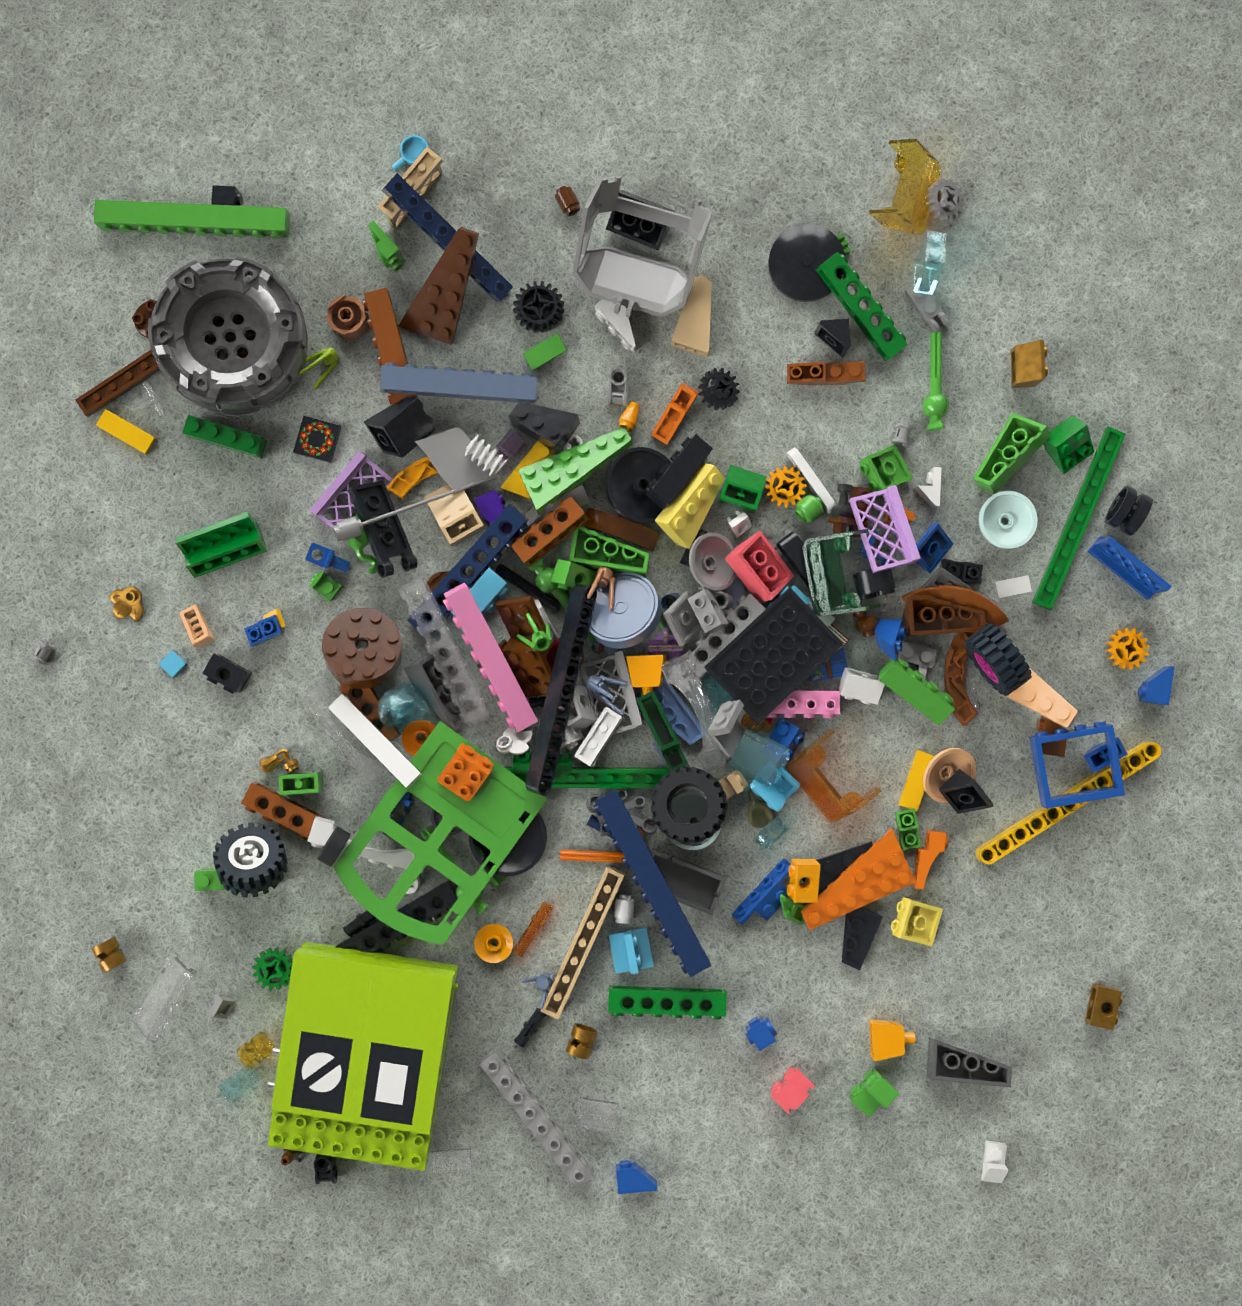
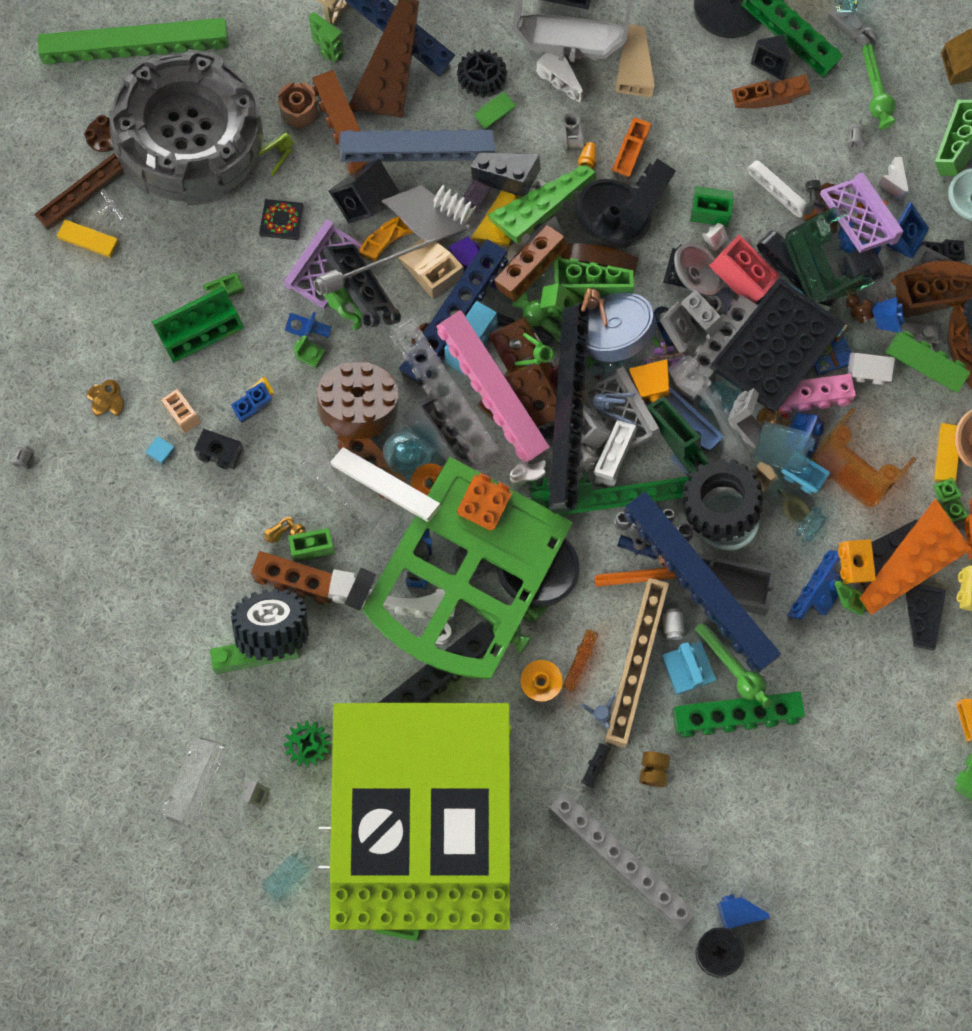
camera: 15 degrees left, 15 degrees down
(109, 954) = (130, 760): pearl gold wheel -> none
(224, 436) = (189, 227): green brick -> none
(226, 196) = (164, 15): black brick -> none
(252, 1052) = (299, 835): clear yellow wheel -> none
(255, 502) = (230, 282): none -> bright green tile
(289, 1156) = (355, 942): reddish brown piece -> none
(325, 1169) = (394, 956): black piece -> none
(361, 921) = (396, 678): black pin -> none
(605, 1224) = (726, 941): none -> black wheel
(679, 983) = (750, 684): none -> bright green piece
(689, 508) = (664, 225): light yellow wedge -> none
(721, 381) = (670, 119): black gear -> none
(761, 1032) = (845, 731): blue brick -> none
(781, 478) = (753, 197): light orange gear -> none
(791, 1090) = (892, 785): coral brick -> none
(809, 508) = (781, 213): bright green head -> none
(885, 469) = (844, 166): bright green plate -> none

